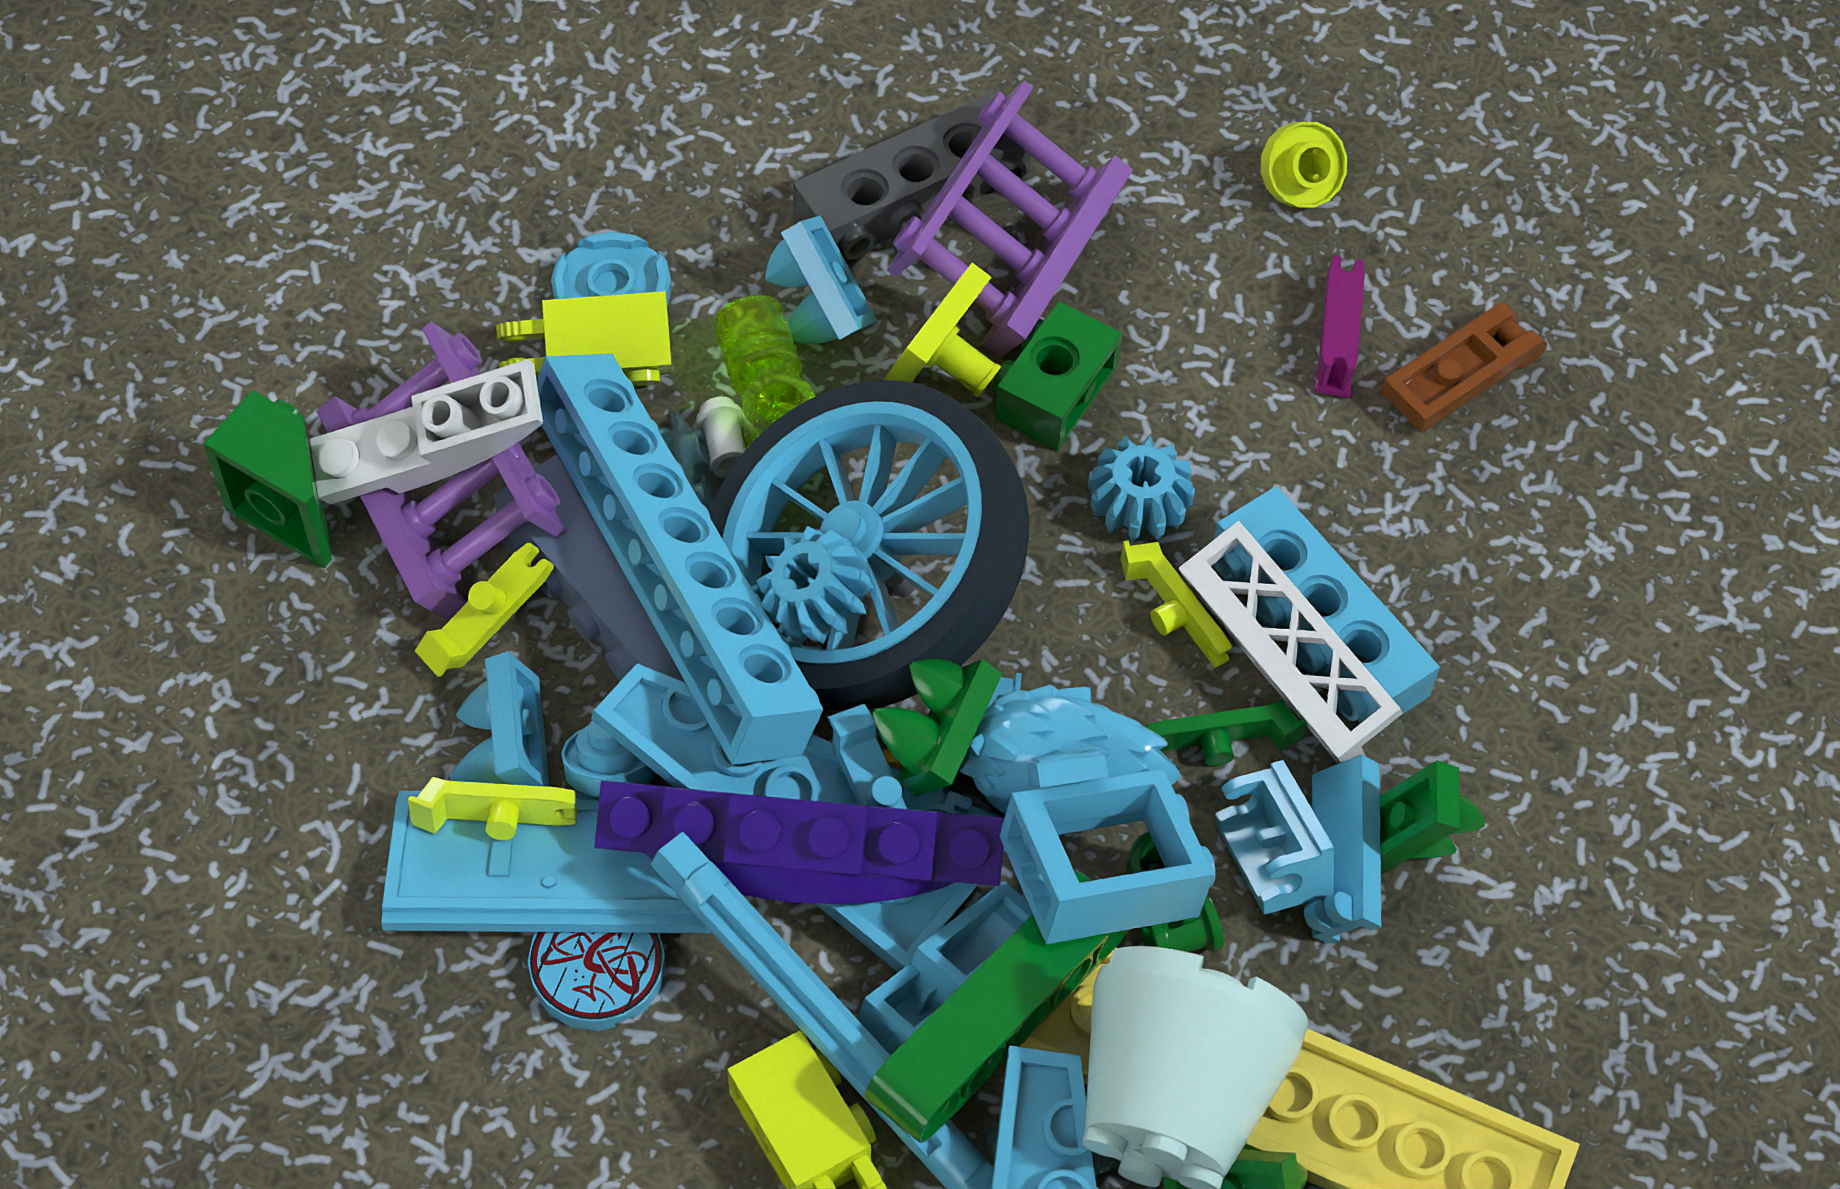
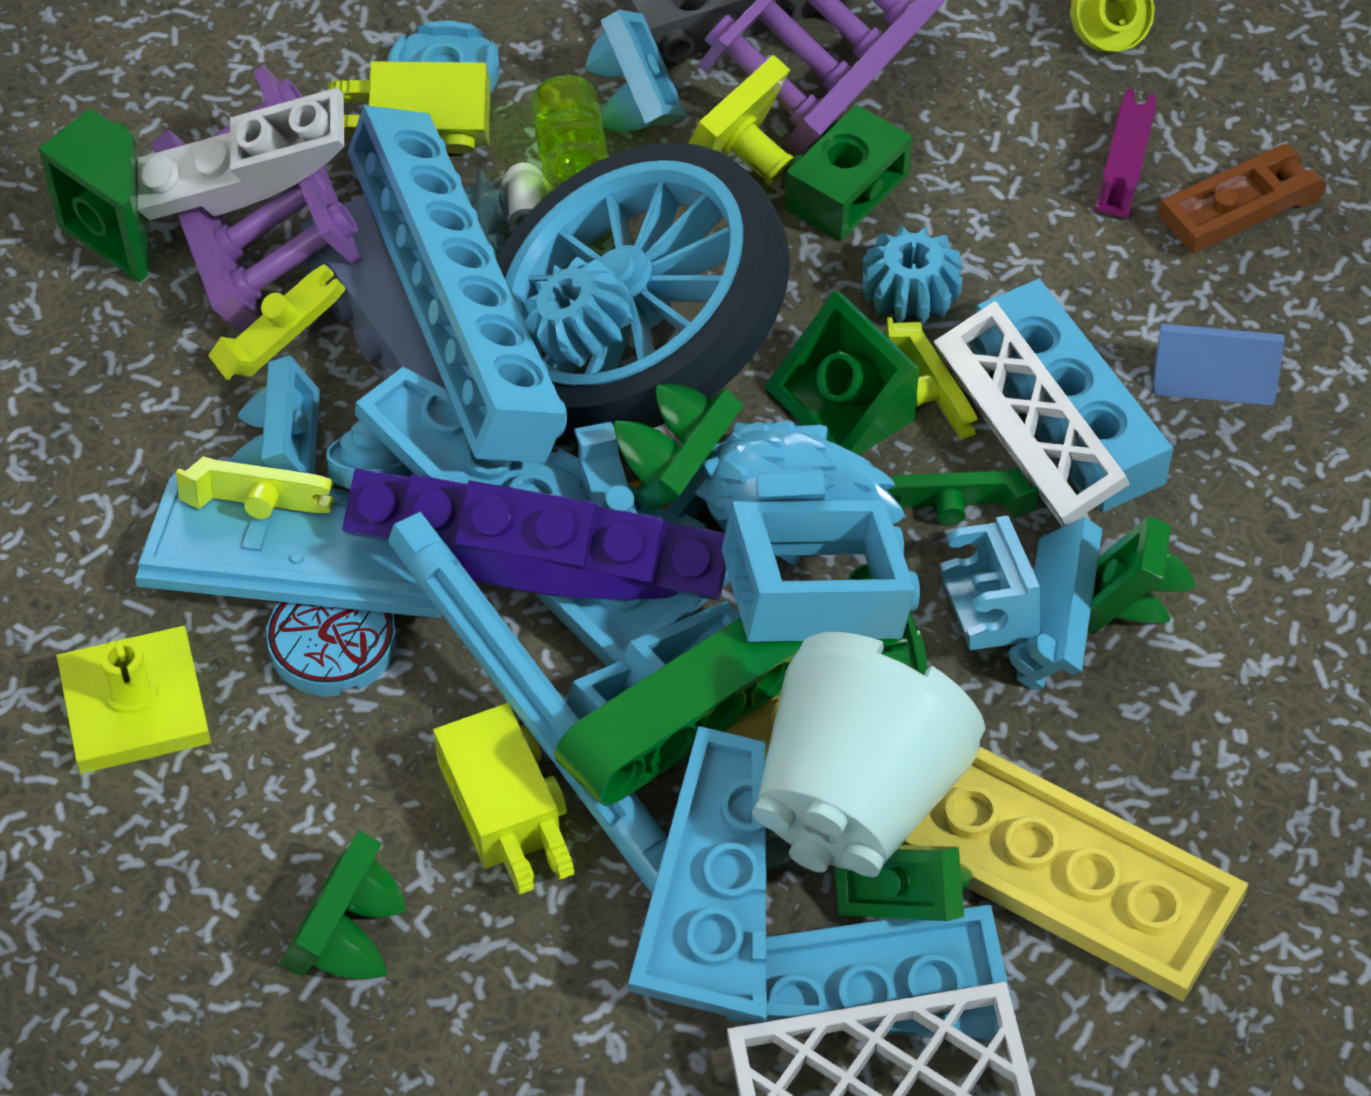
camera: 10 degrees right, 5 degrees down
(397, 1058) = (133, 699): none -> neon yellow tile
(1091, 618) = (847, 378): none -> green slope
(1466, 560) = (1217, 364): none -> medium blue slope

